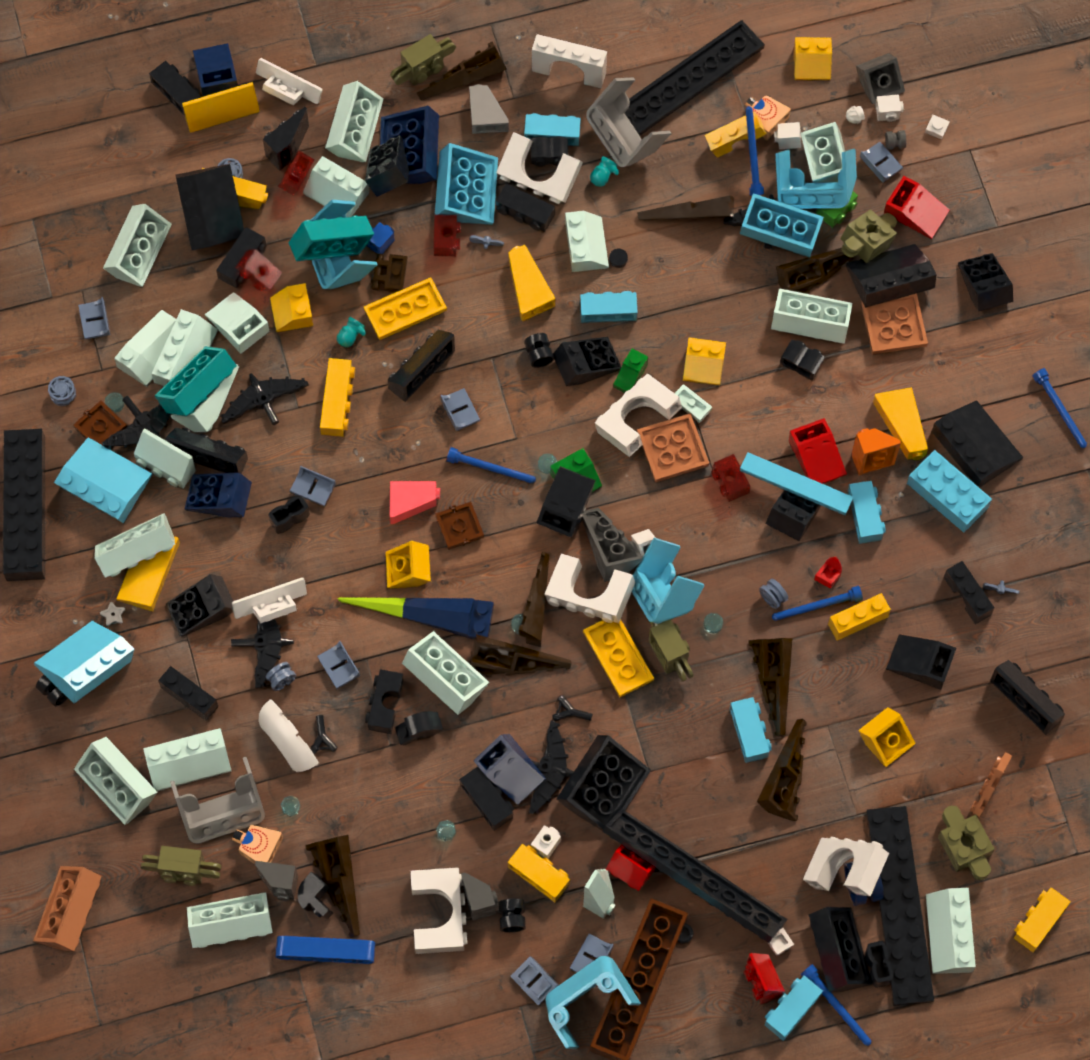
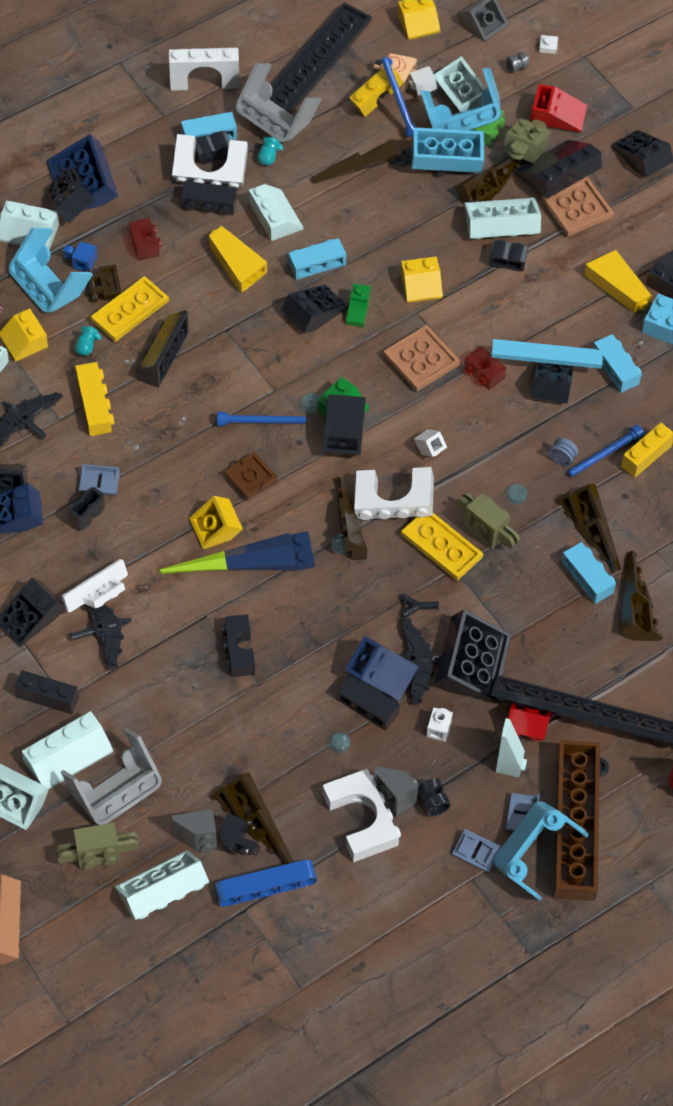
camera: 20 degrees left, 10 degrees down
(258, 843) = (163, 805): light nougat torso -> none
(280, 676) = (131, 651): sand blue wheel -> none
(284, 737) = (156, 702): white brick -> none
(290, 806) = (183, 764): clear light blue tile -> none
(322, 737) = (190, 695): black piece -> none
(331, 238) = (41, 262): teal brick -> none
(334, 657) = (177, 620): sand blue piece -> none
(354, 122) = (24, 168): light aqua slope -> none
(411, 498) = (197, 464): coral slope -> none
(418, 725) = (280, 655): black brick -> none
(422, 60) = (69, 101): olive brick -> none
(445, 672) = (286, 603): light aqua slope -> none
(456, 401) = (207, 373): sand blue piece -> none
(466, 184) = (147, 192): medium azure slope -> none
(470, 70) = (118, 99): dark brown wedge -> none
(485, 111) = (143, 130): light grey slope -> none
(486, 241) = (183, 235): sand blue piece -> none
(499, 657) = (329, 578): dark brown wedge -> none
(538, 349) = (268, 309): black wheel -> none
(539, 872) = (443, 753): yellow brick -> none
(609, 544) = (397, 454): dark grey wedge -> none
(618, 258) = (309, 218): black tile -> none
(646, 393) = (380, 318): white arch -> none
(653, 588) = (450, 465): medium azure windscreen -> none
(693, 403) = (423, 316): light aqua plate -> none
(817, 451) = (553, 323): red slope -> none
(829, 572) = (606, 420): red plate -> none
(855, 114) = (474, 51): white plate -> none
(874, 450) = (606, 307): orange slope -> none
(875, 155) = (518, 88): sand blue piece -> none
(888, 108) = (500, 39): white brick -> none

